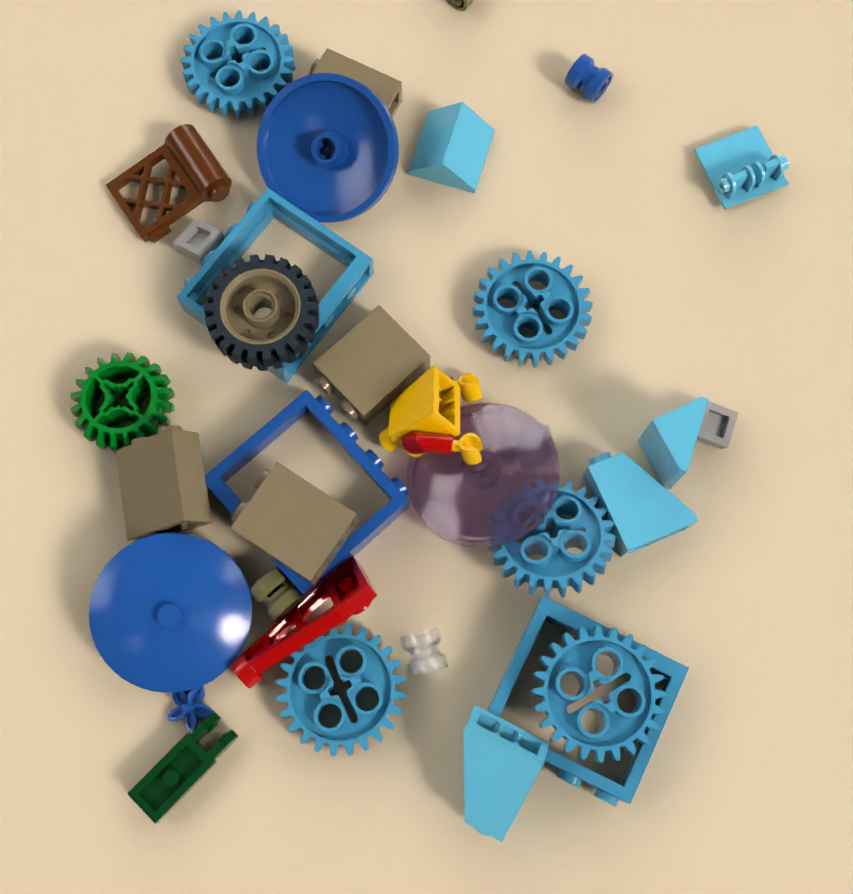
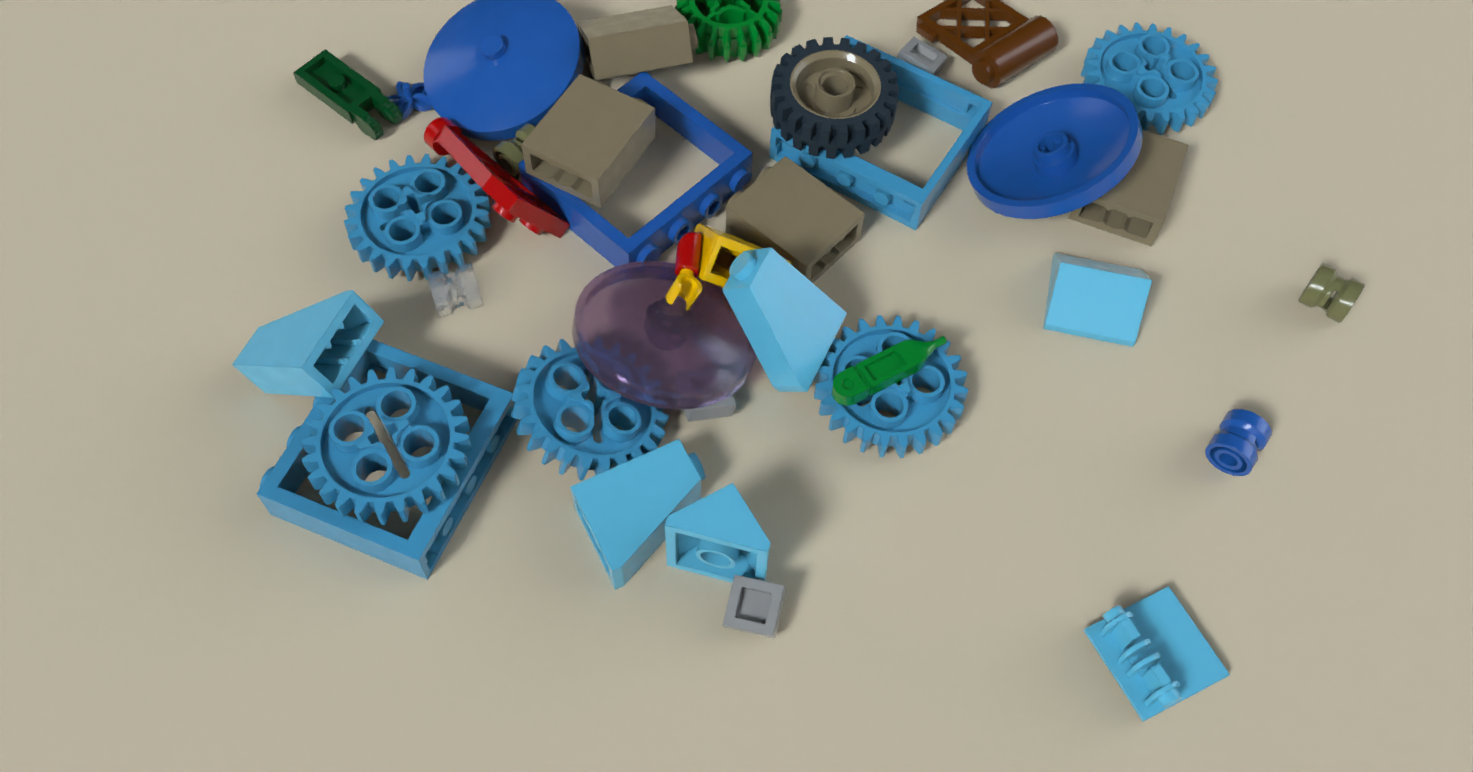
camera: 85 degrees right, 15 degrees down
(488, 377) = (782, 317): none -> medium azure slope
(535, 307) = (882, 370): none -> green piece

